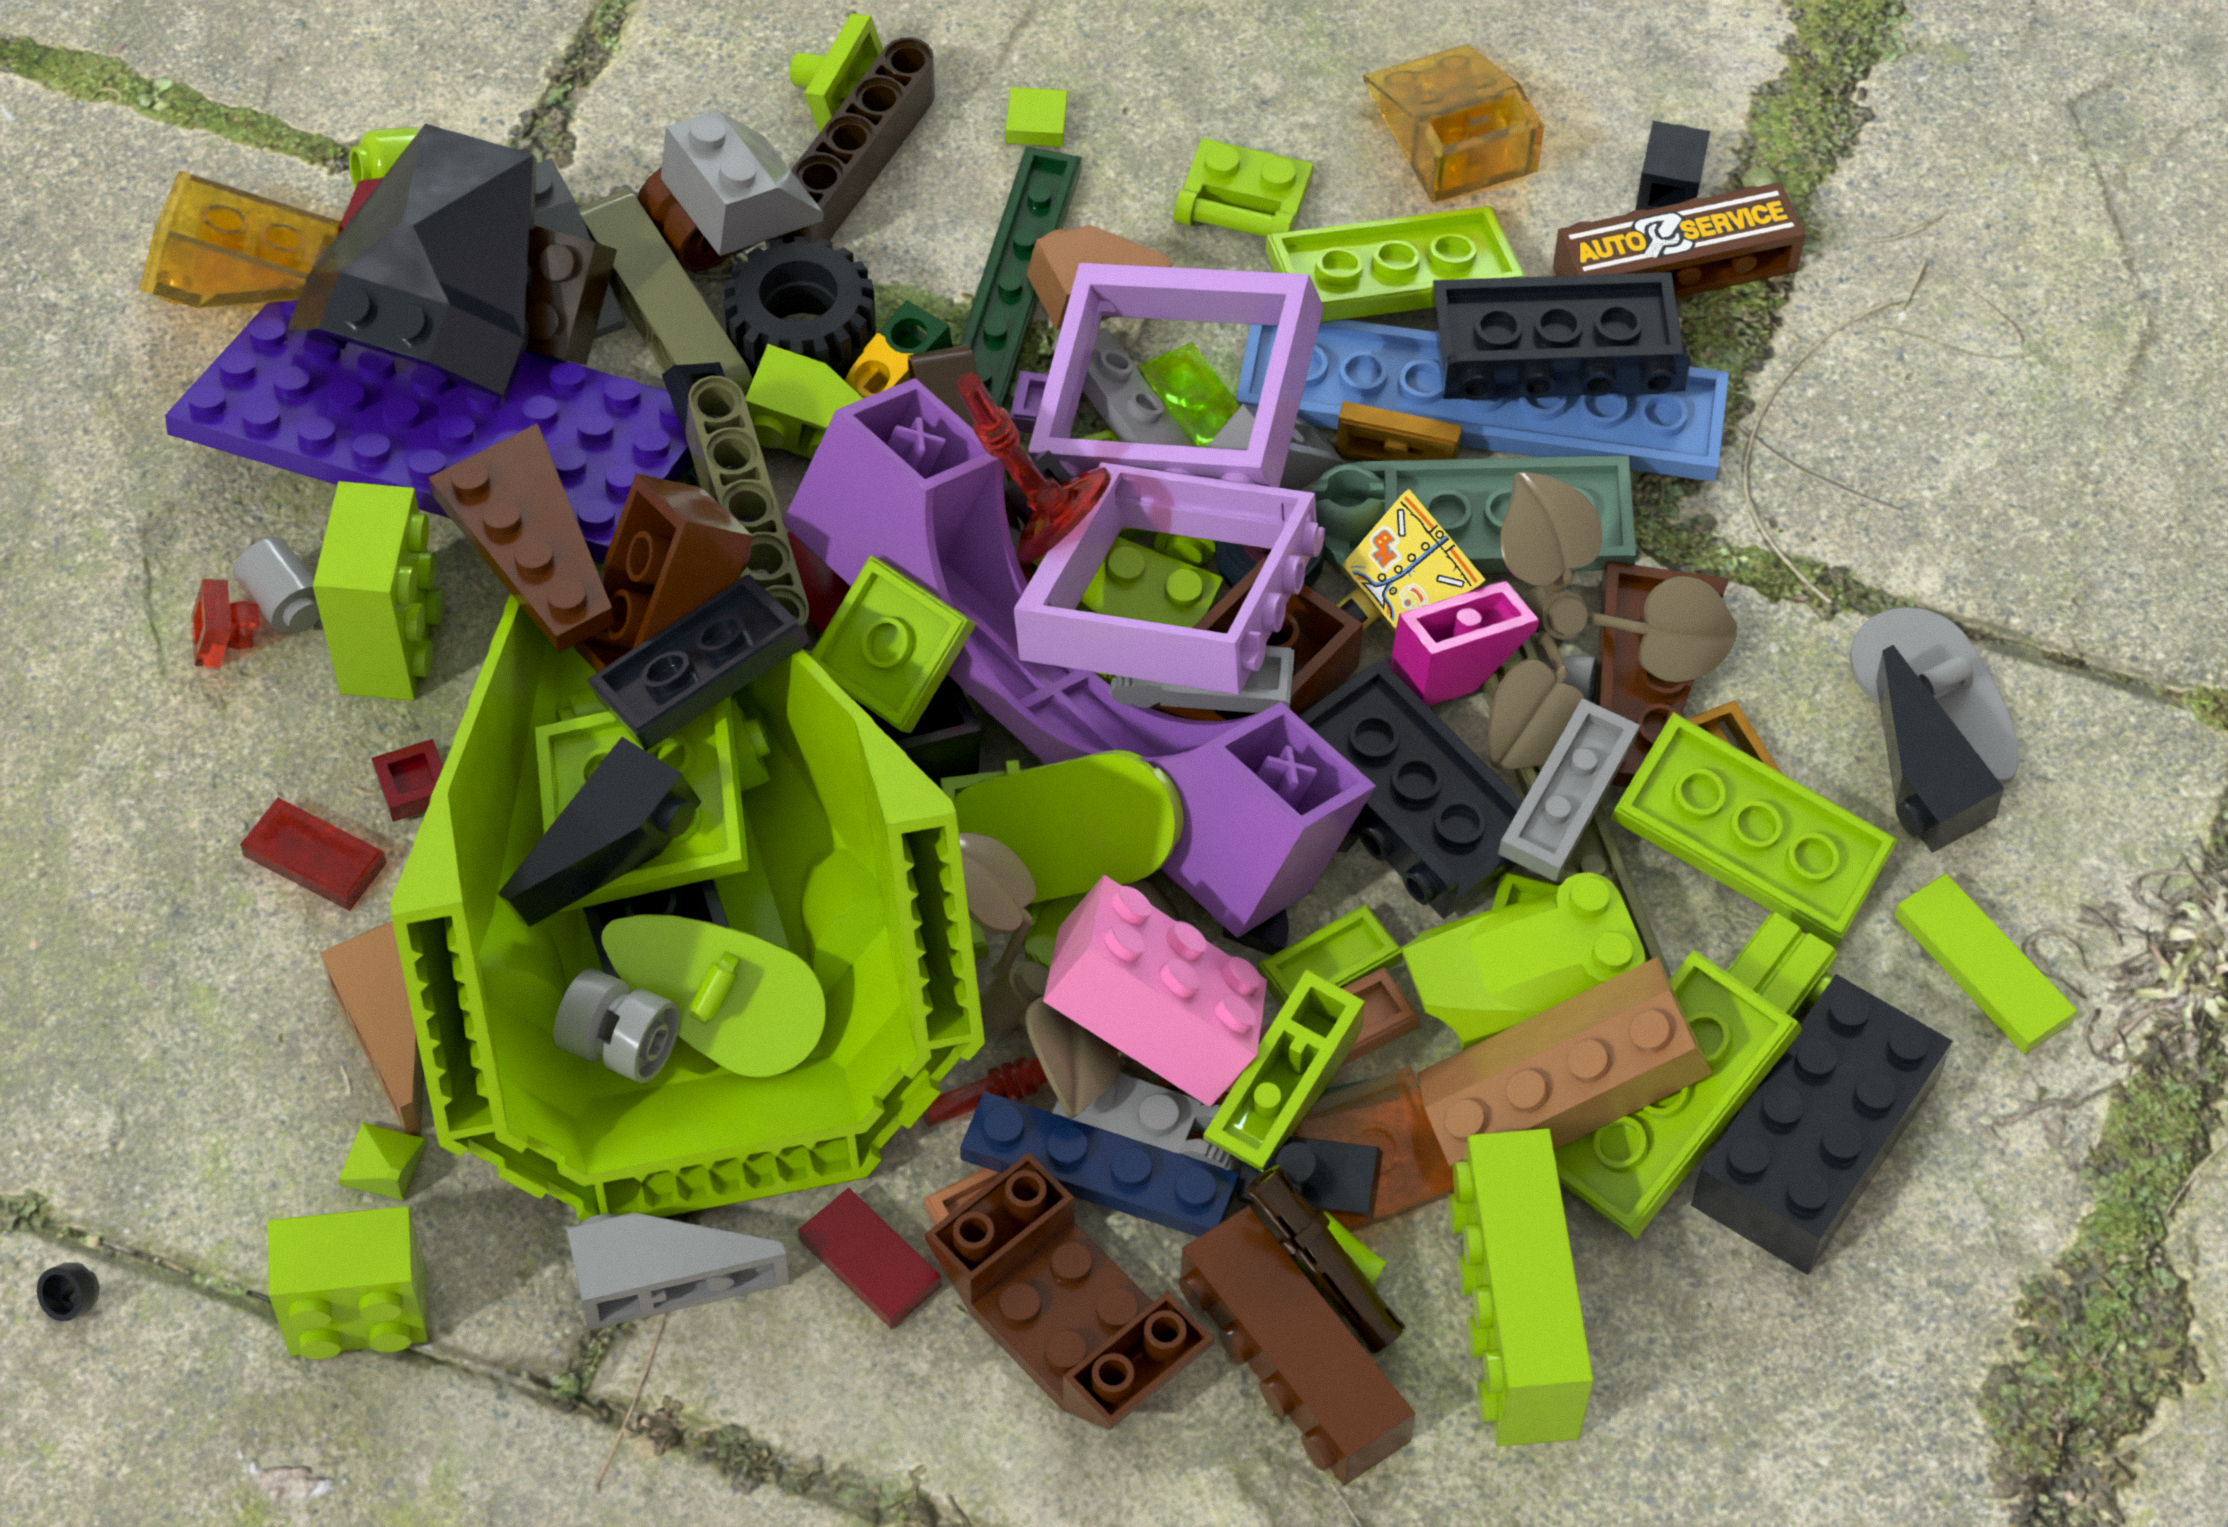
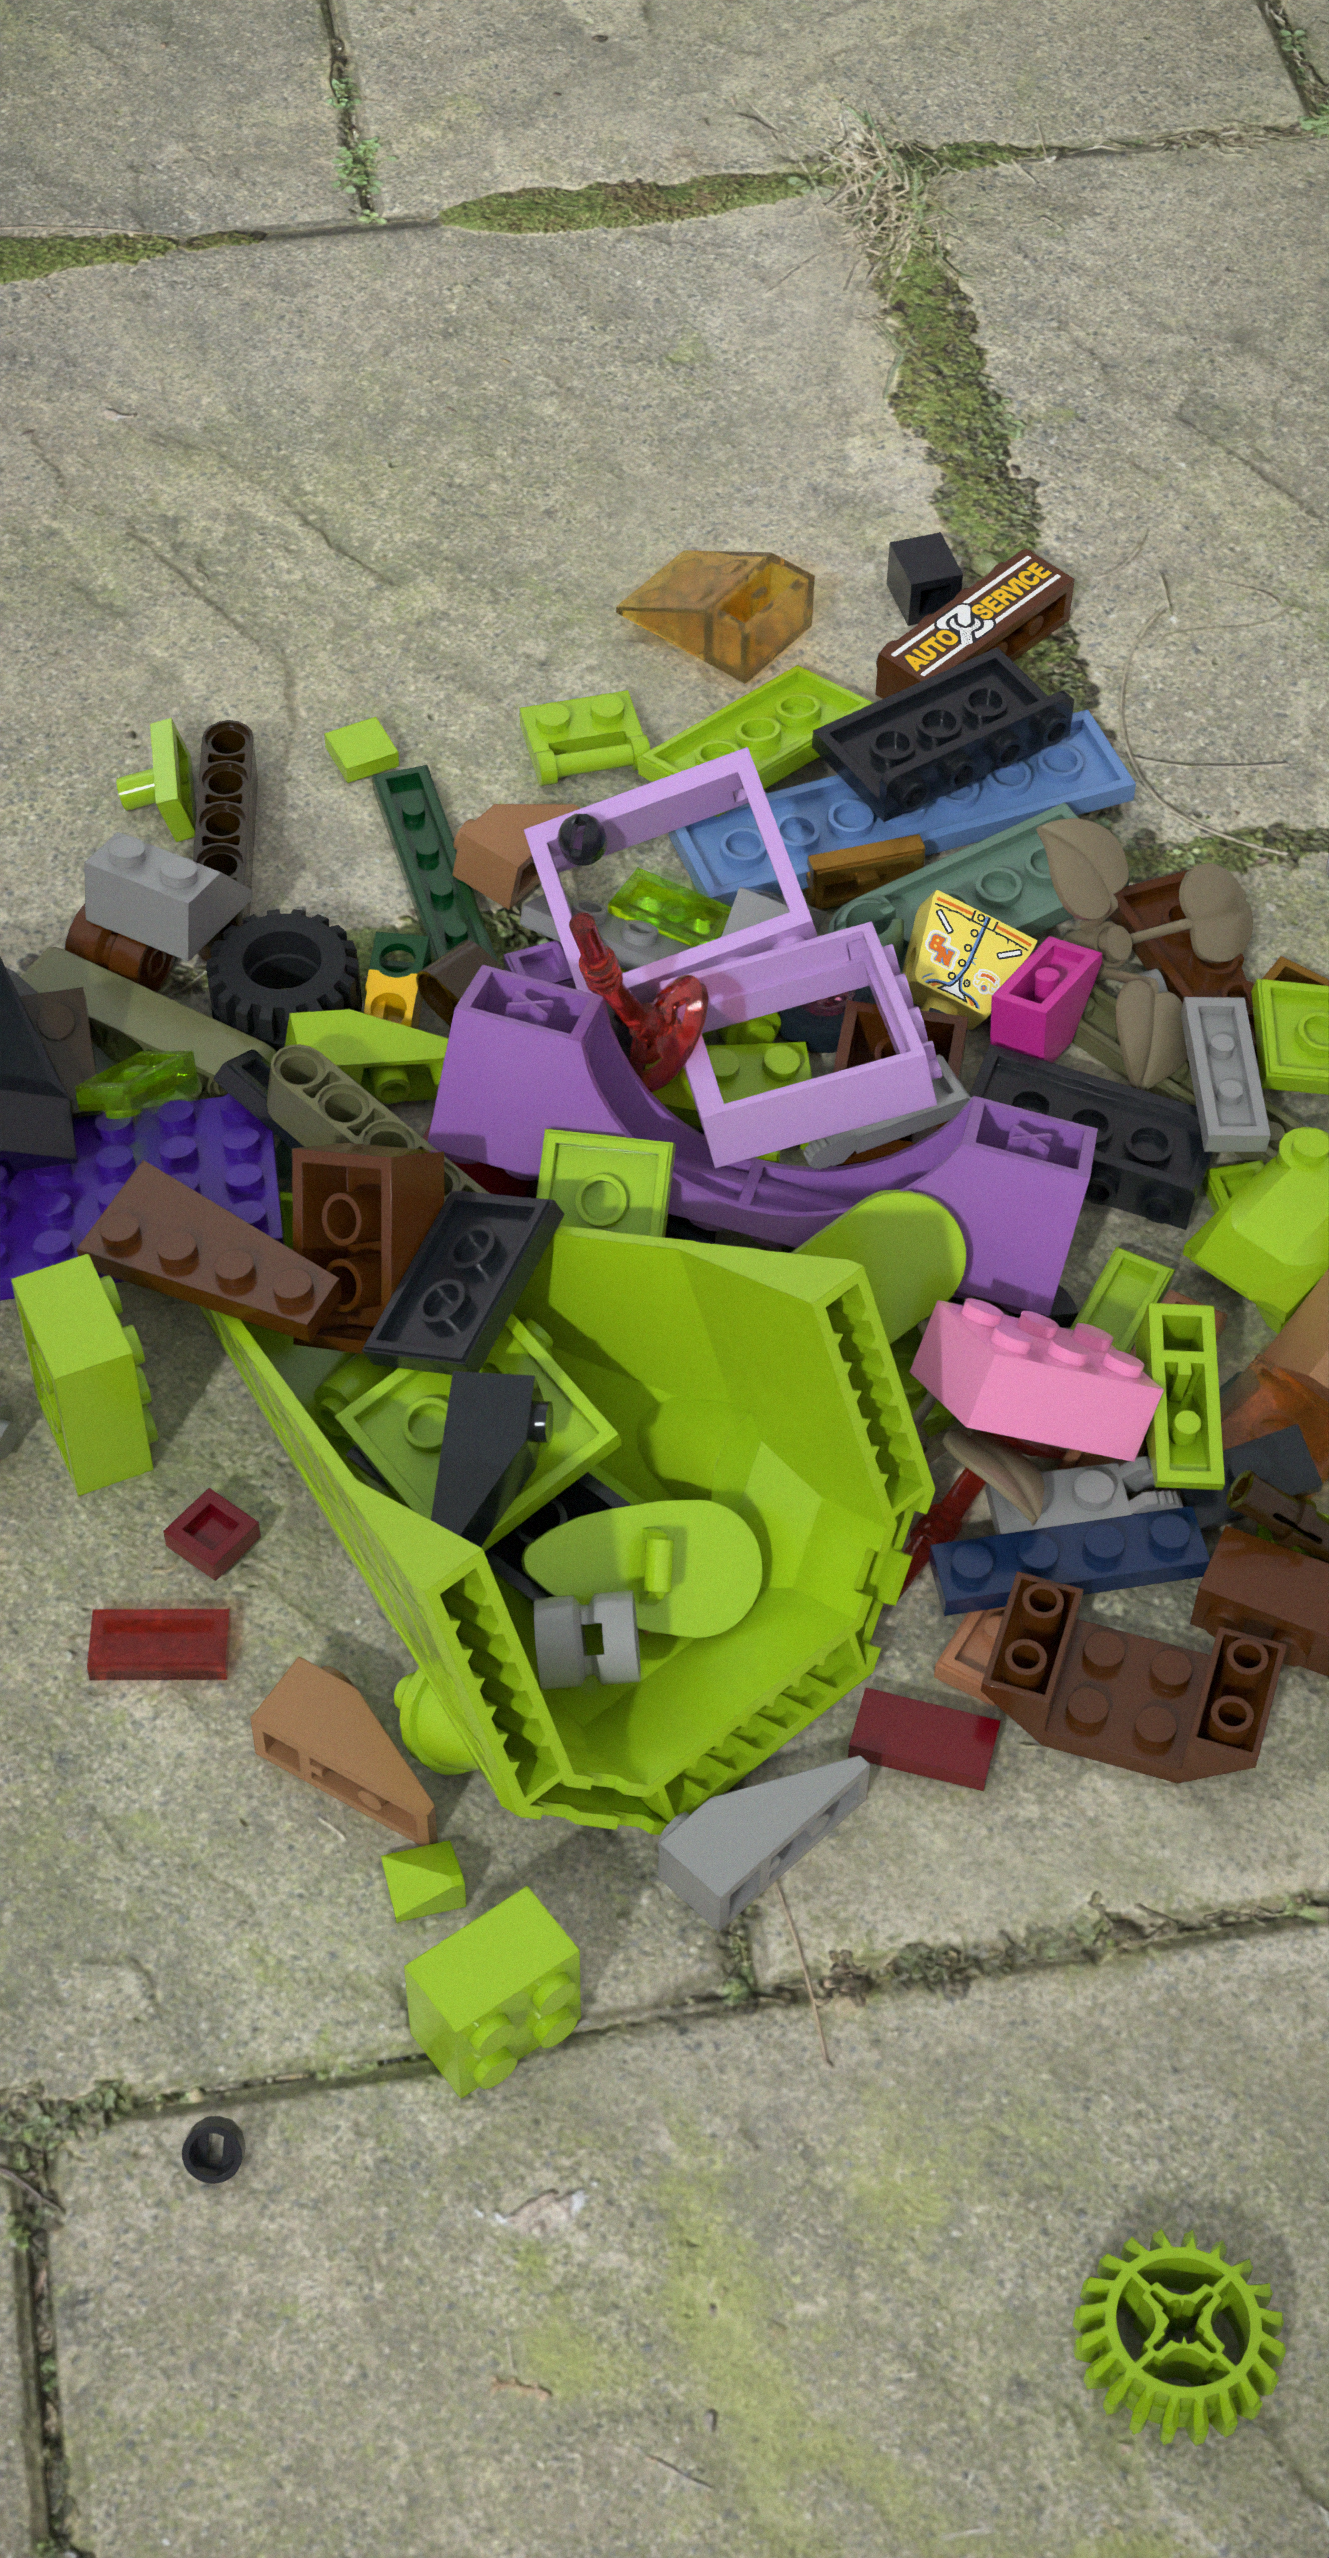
camera: 30 degrees left, 5 degrees down
(604, 346) = (134, 1082): none -> clear neon green plate
(1122, 301) = (593, 842): none -> black hinge

